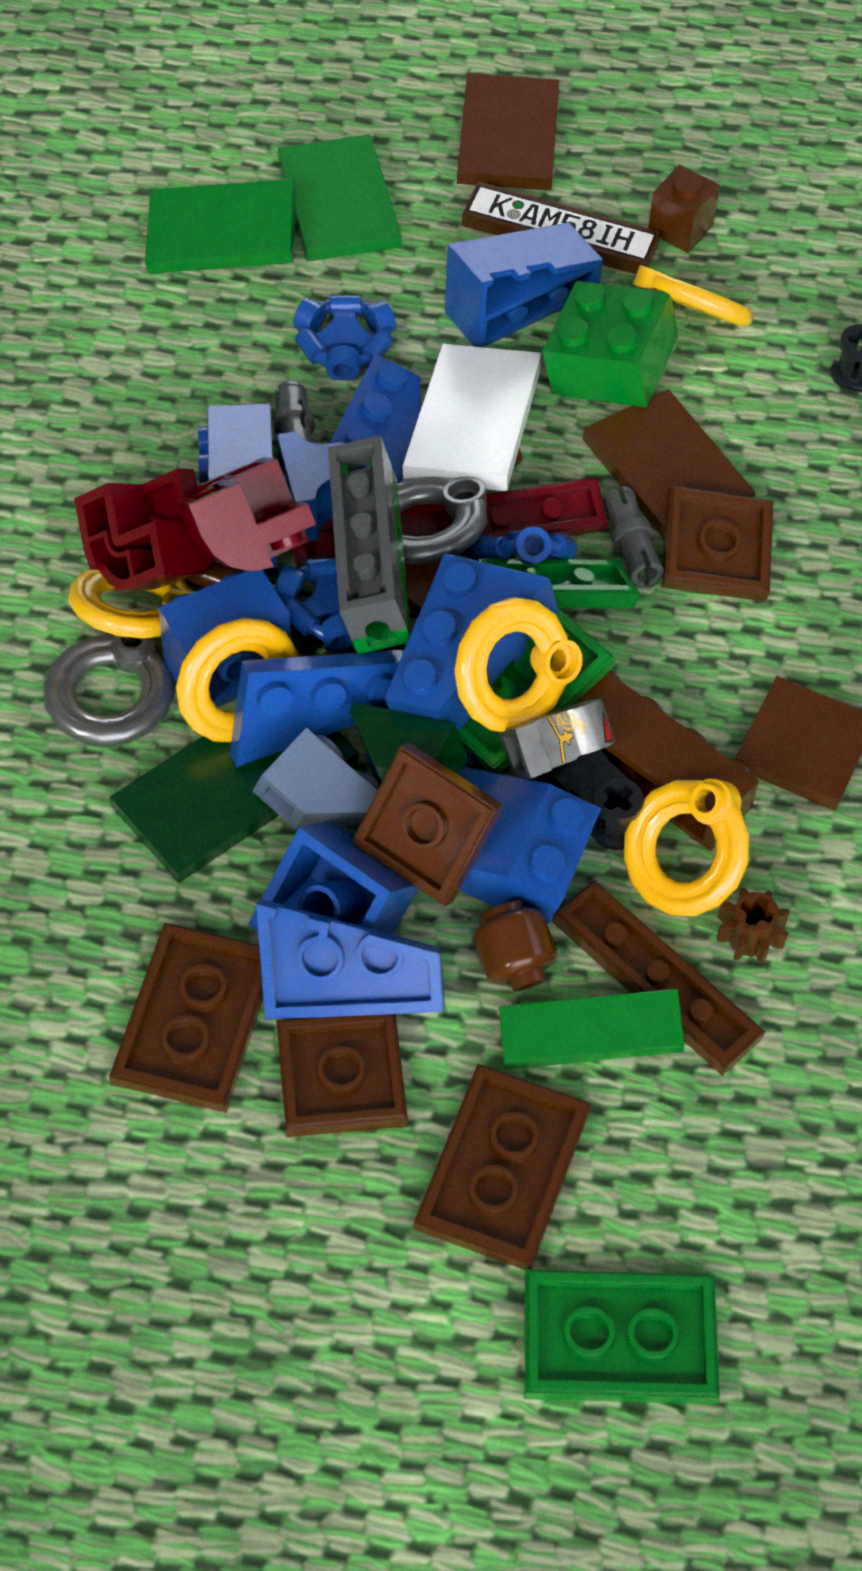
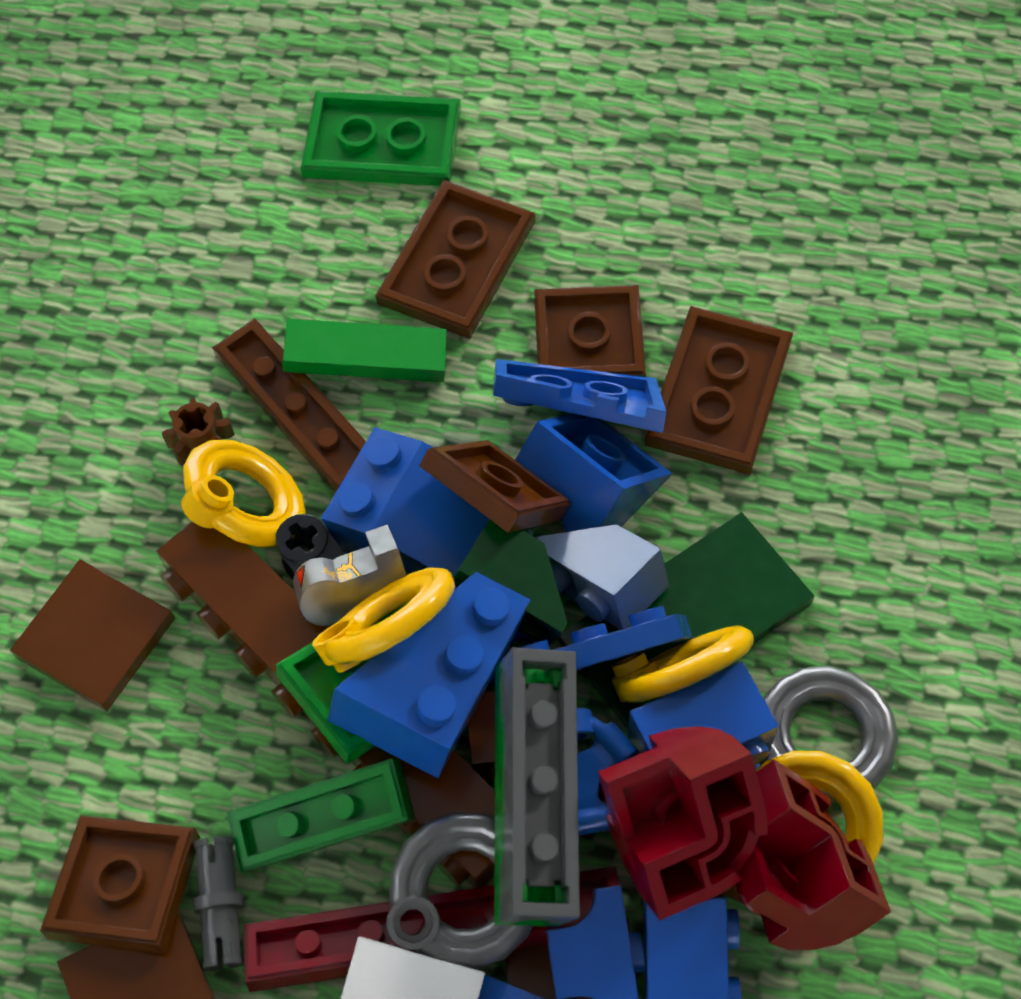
camera: 170 degrees left, 5 degrees up
(514, 945) = (425, 414): reddish brown head -> none
(527, 545) = (337, 854): blue piece -> none

